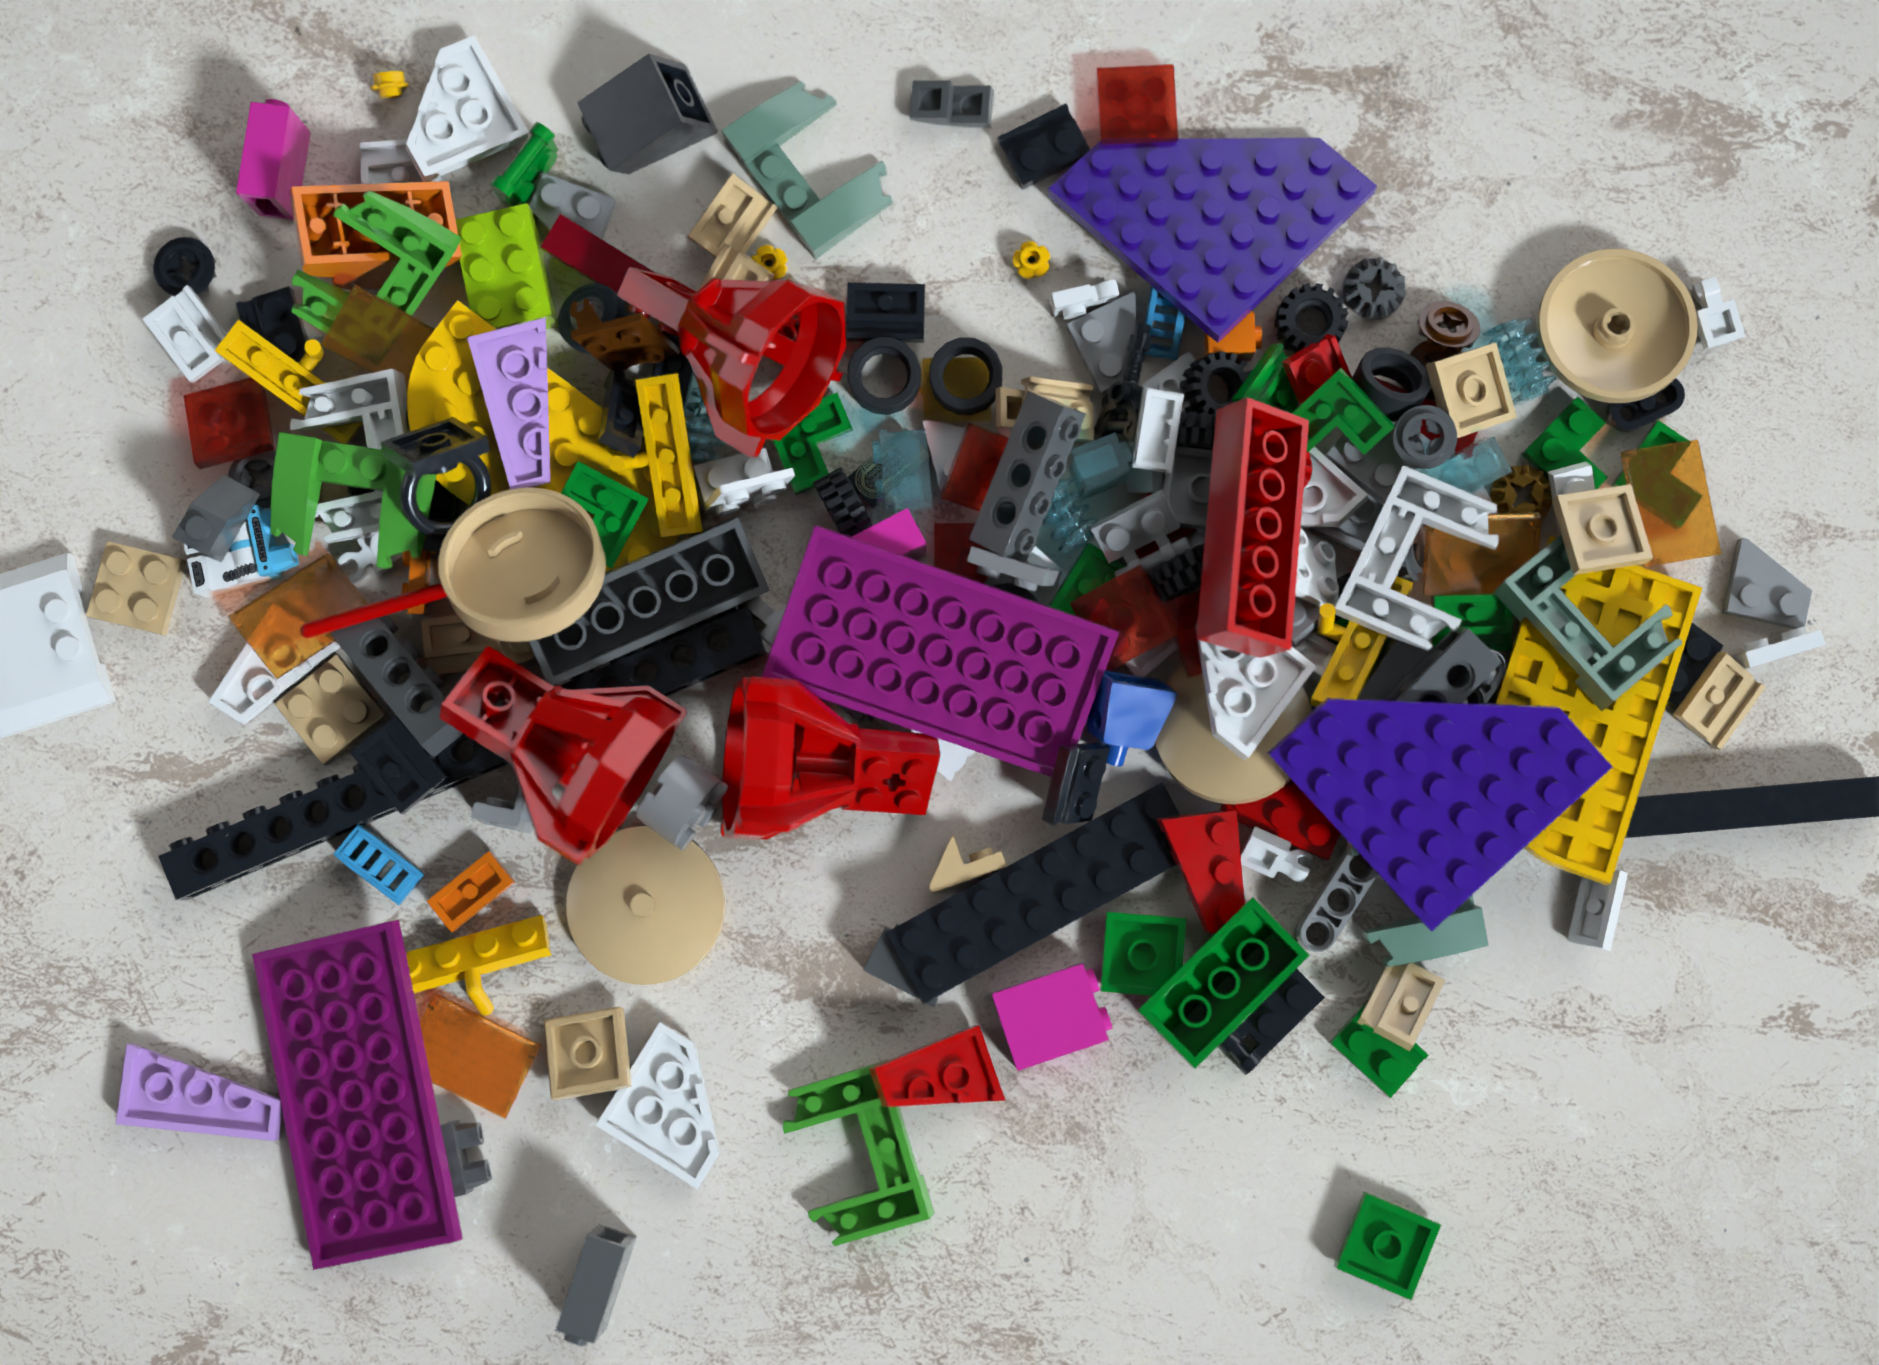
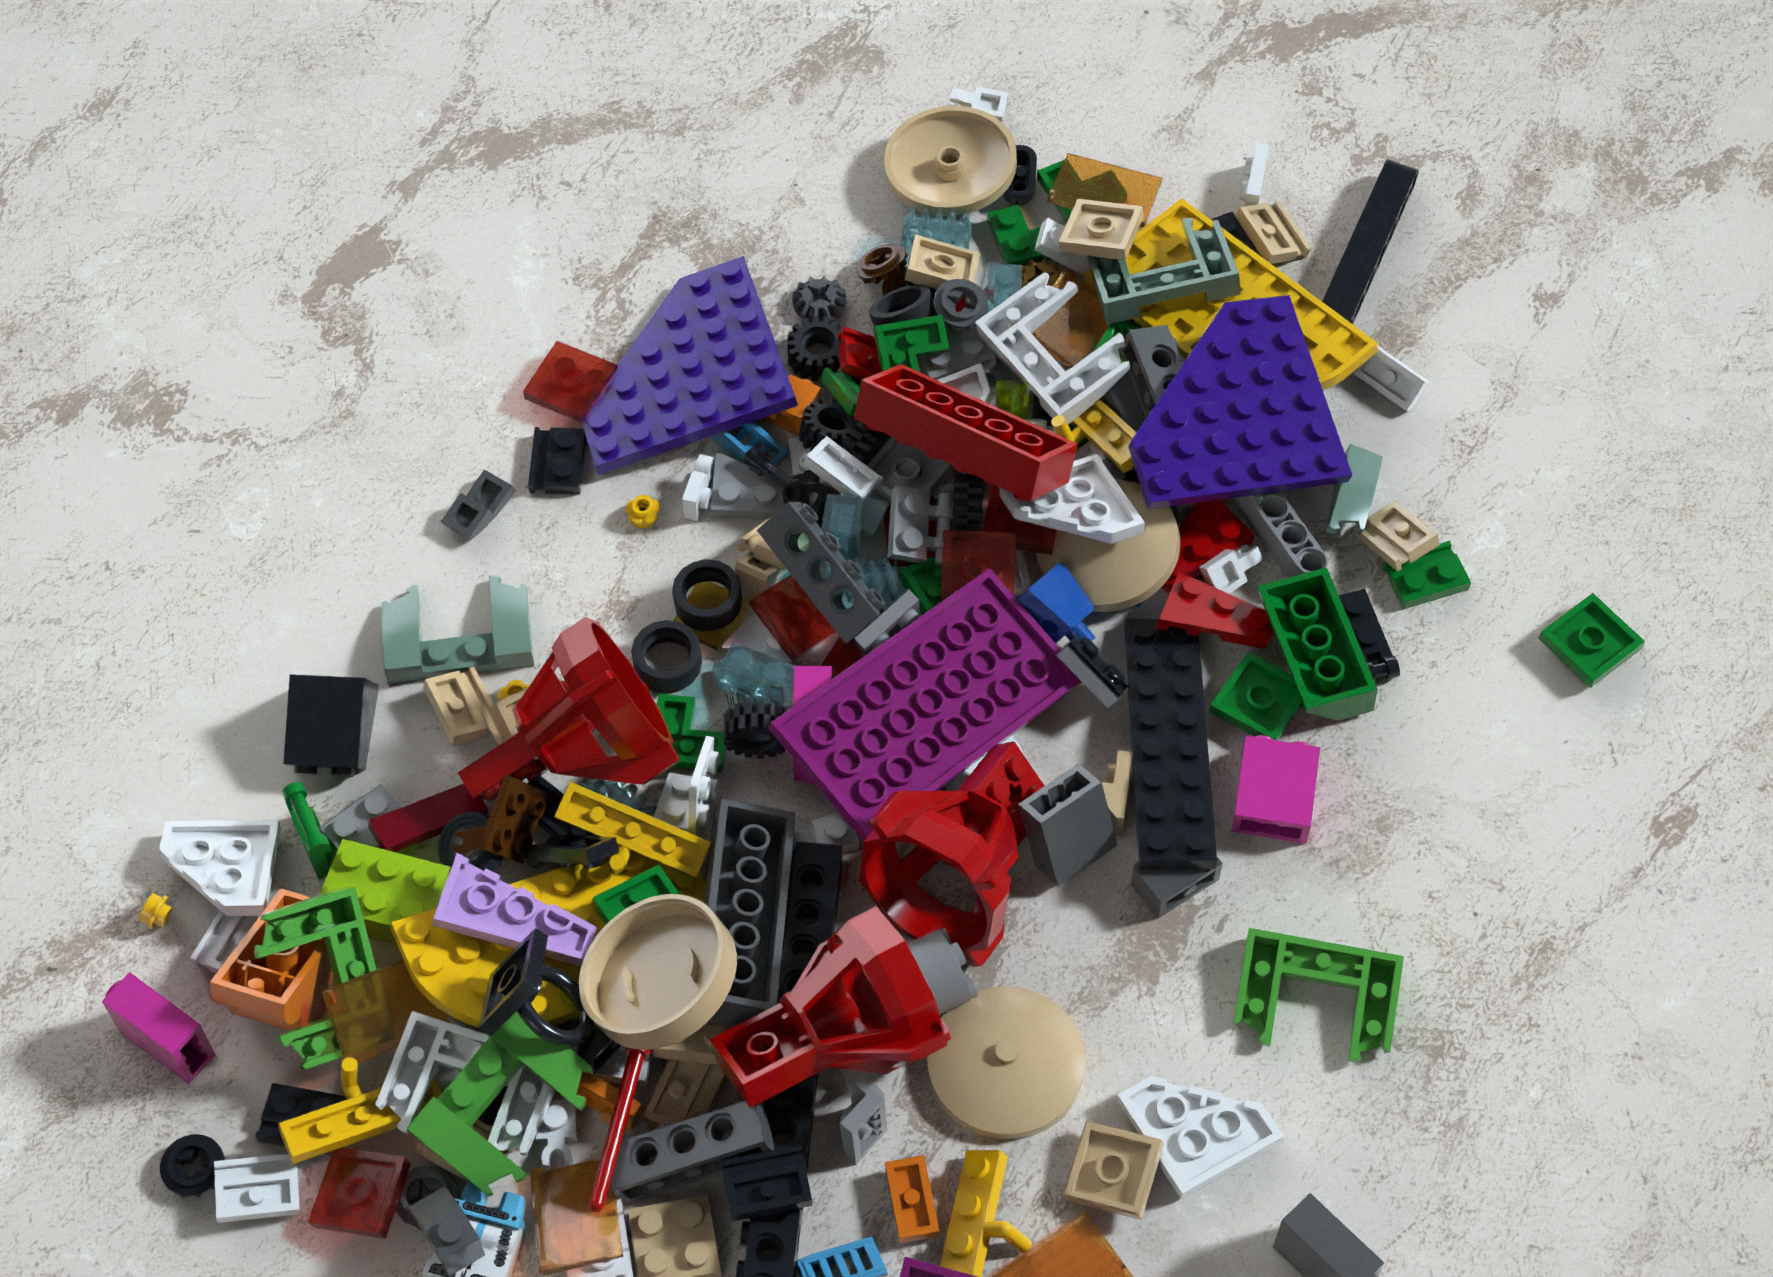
camera: 65 degrees left, 25 degrees down
(885, 311) = (623, 619): black plate -> none
(891, 846) = (1068, 824): none -> dark grey brick
(940, 1073) = (1282, 889): red wing -> none
(1343, 547) = (1012, 397): none -> clear neon green plate
(1764, 589) = (1204, 170): light grey wing -> none

